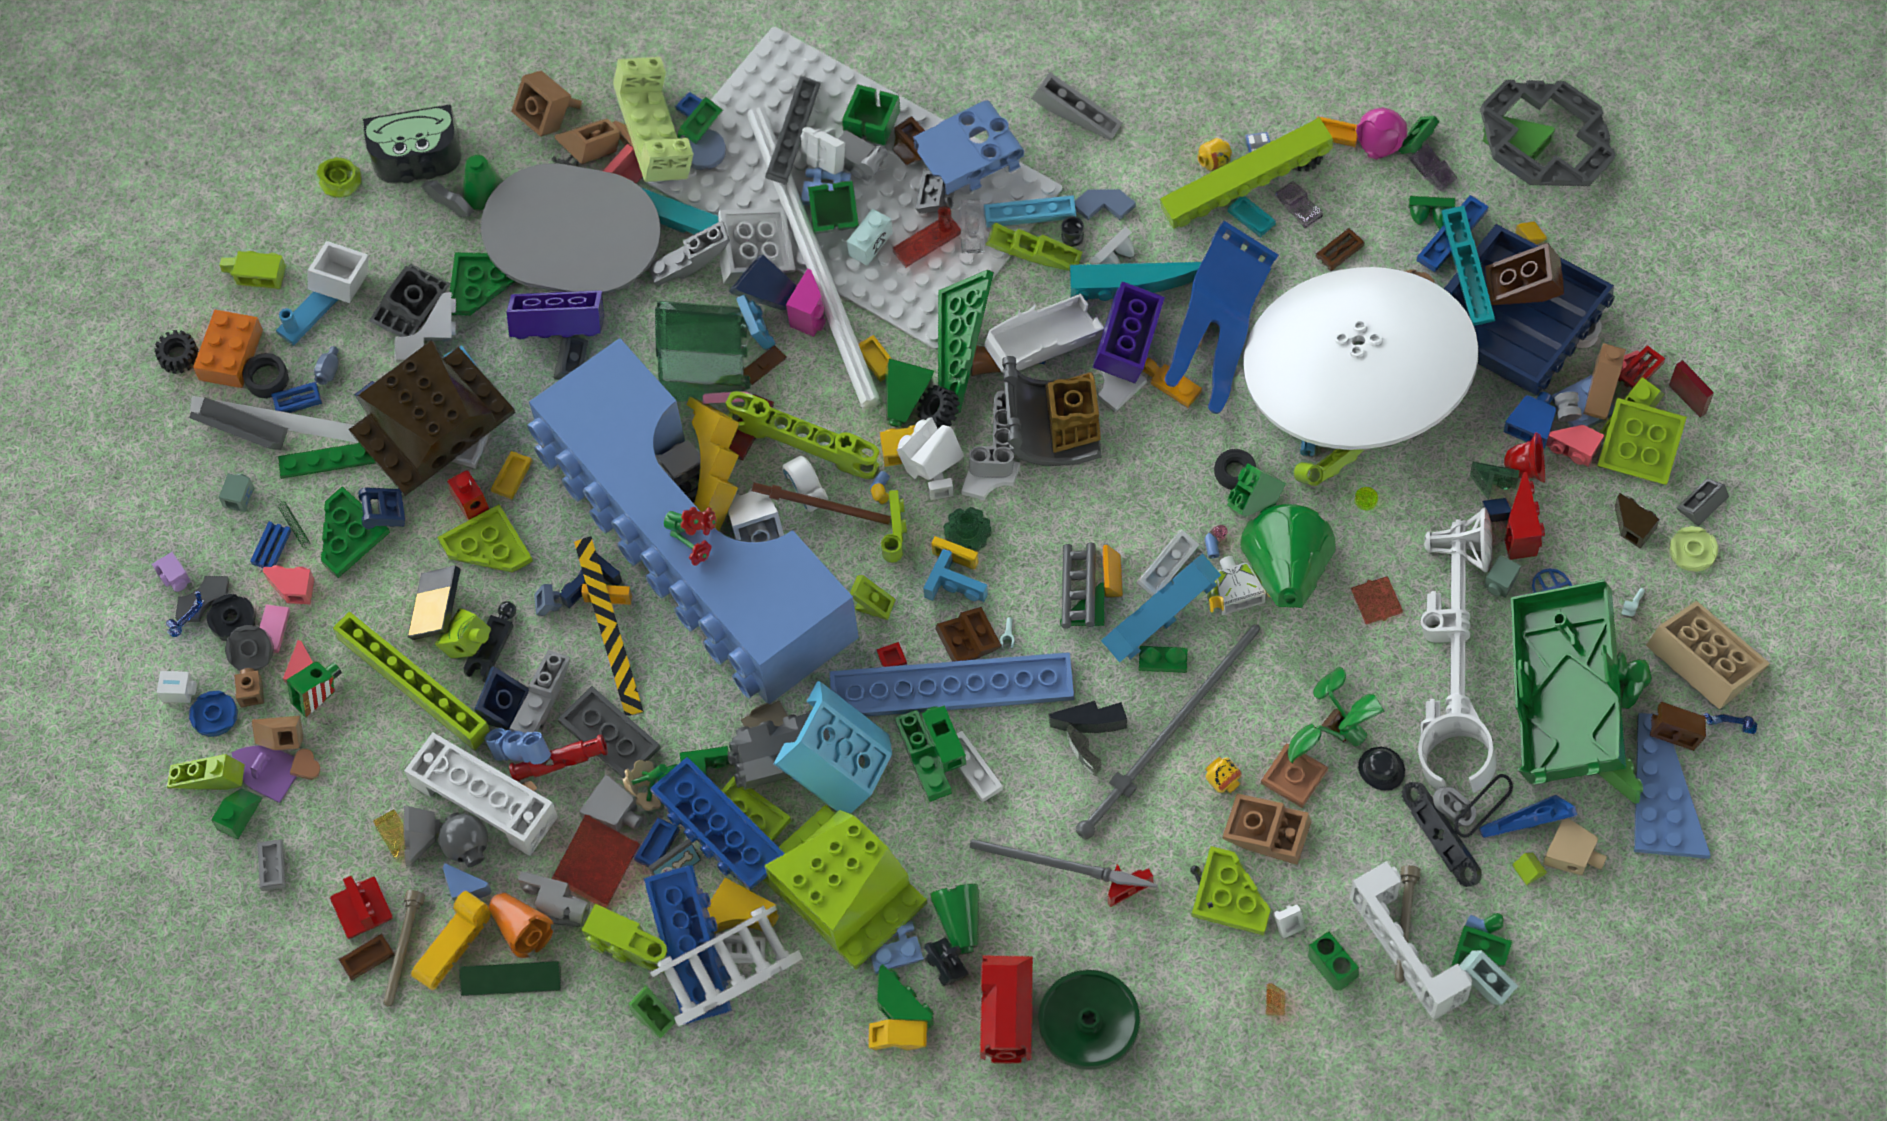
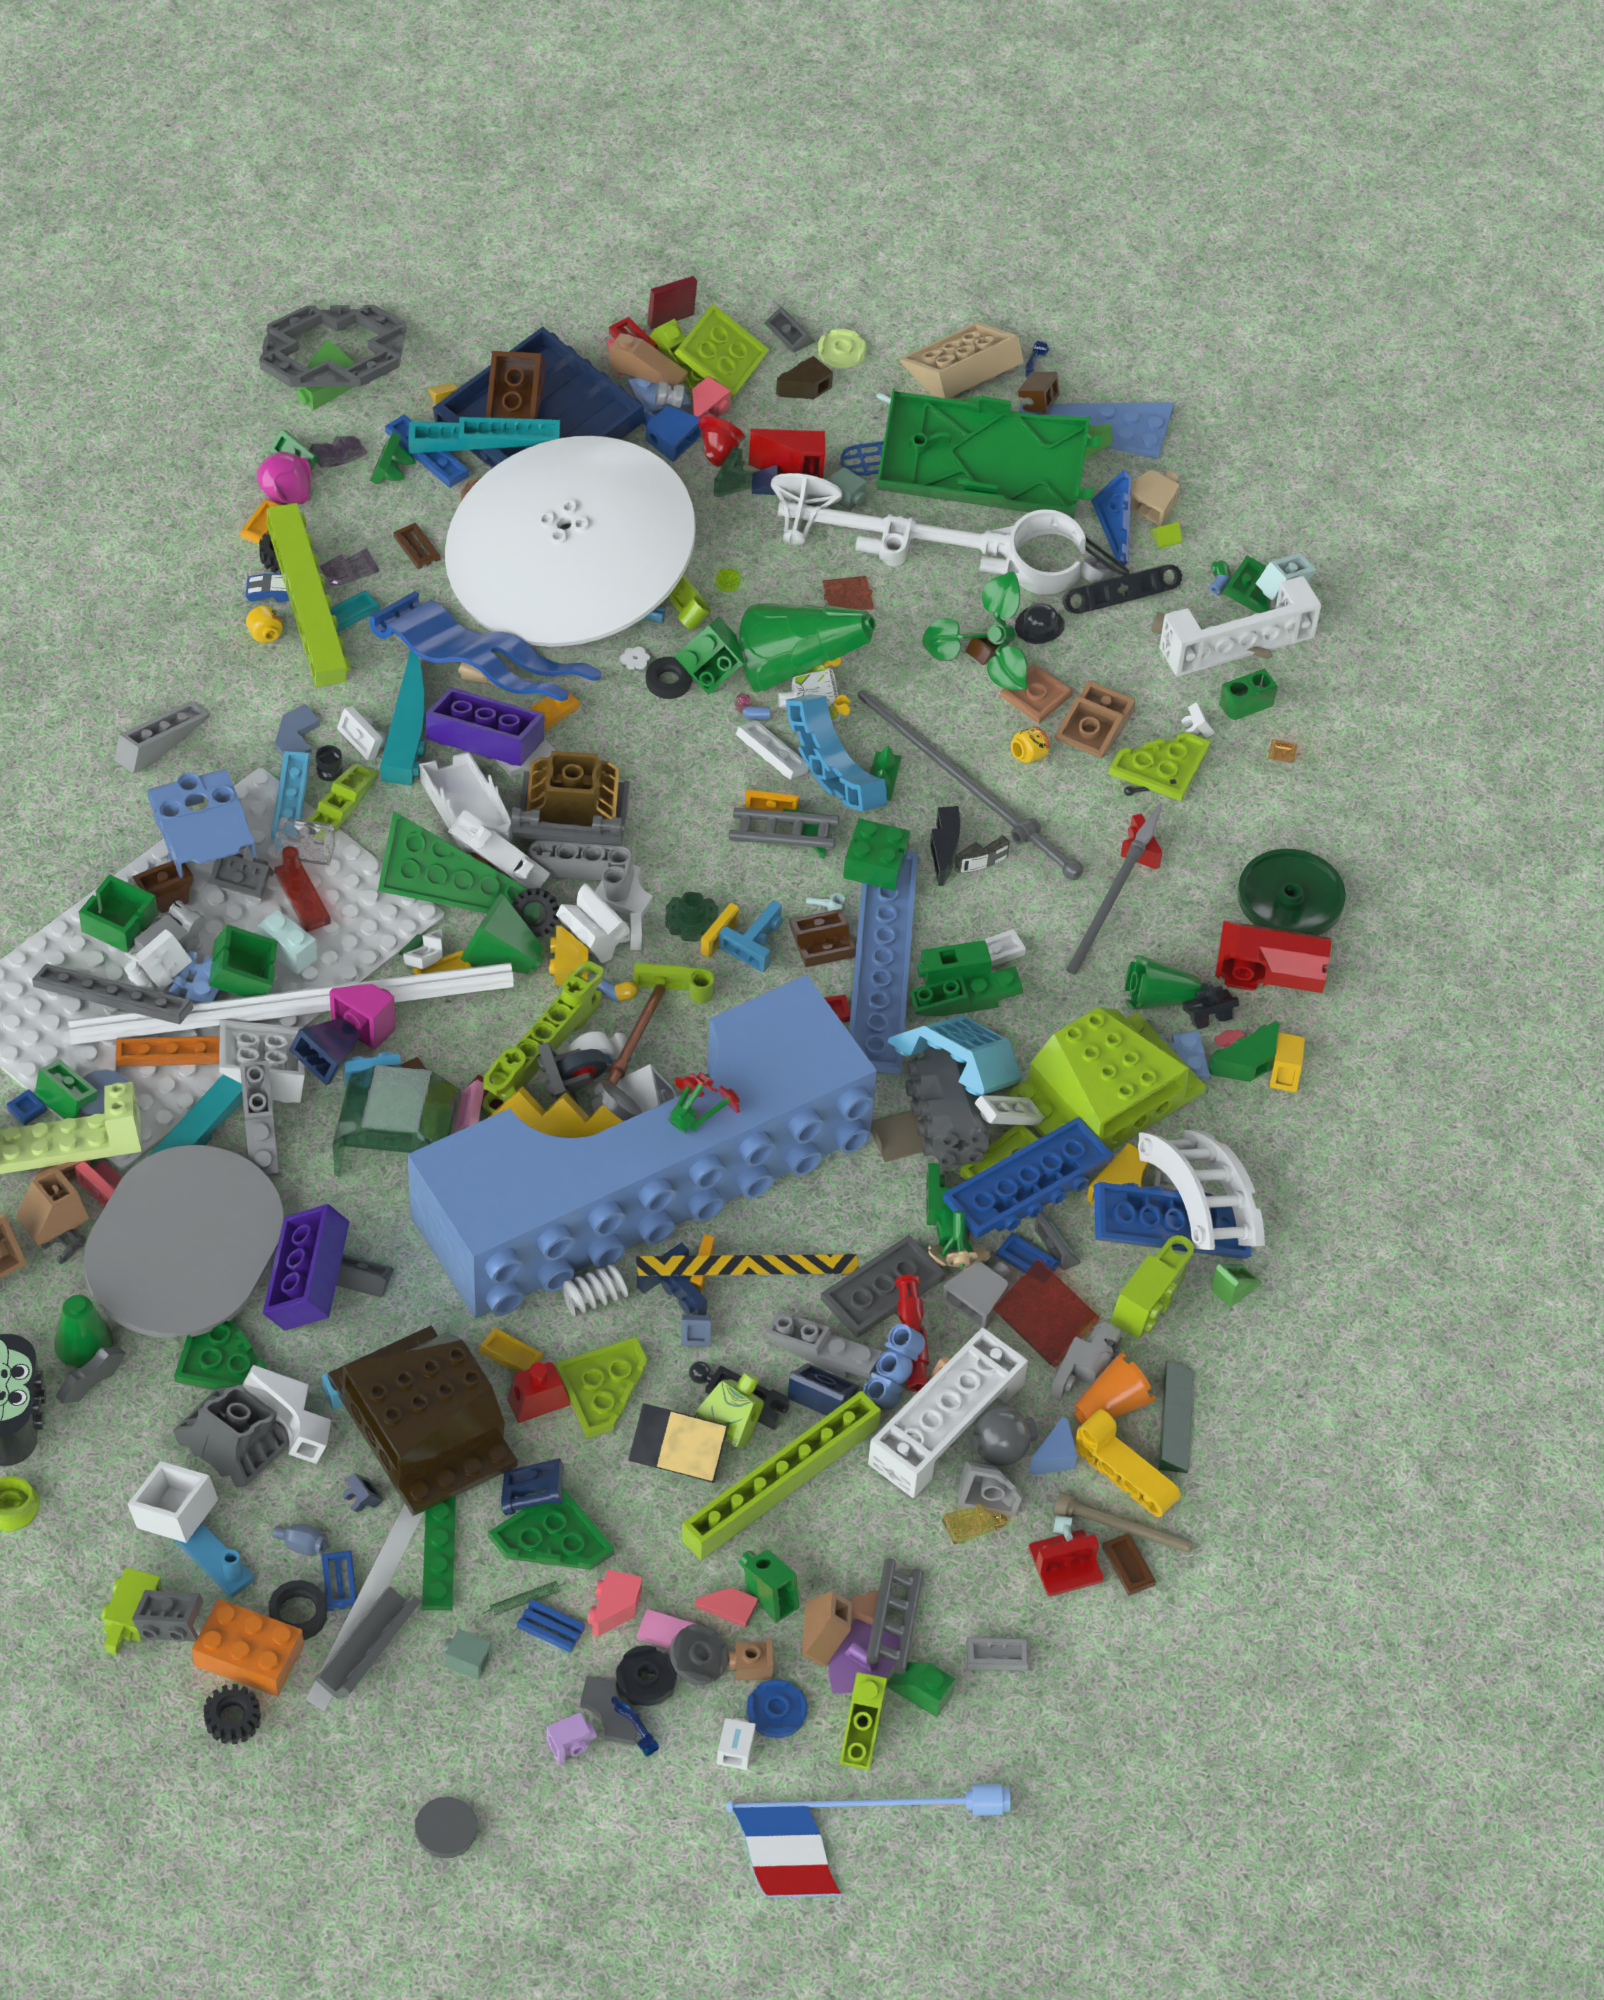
camera: 90 degrees left, 10 degrees down
(94, 741) = (789, 1848): none -> flag
(98, 507) = (446, 1827): none -> dark grey tile
(236, 285) = (167, 1615): none -> dark grey bracket
(283, 772) = (881, 1624): none -> dark grey bar
(396, 899) = (1063, 1526): none -> light aqua hand
(570, 519) = (594, 1288): none -> white piece
(728, 492) = (617, 1100): none -> dark grey tile
(752, 177) = (167, 1051): none -> orange tile
(767, 455) = (570, 1070): none -> plate
(783, 798) = (1009, 1110): none -> white plate
(889, 343) = (427, 954): none -> white slope
(896, 330) = (415, 943): none -> green piece
(919, 983) = (1228, 1037): none -> coral plant
(986, 365) = (497, 851): none -> white hinge
(1054, 654) = (876, 854): none -> green piece
(1251, 434) = (635, 658): none -> white plant

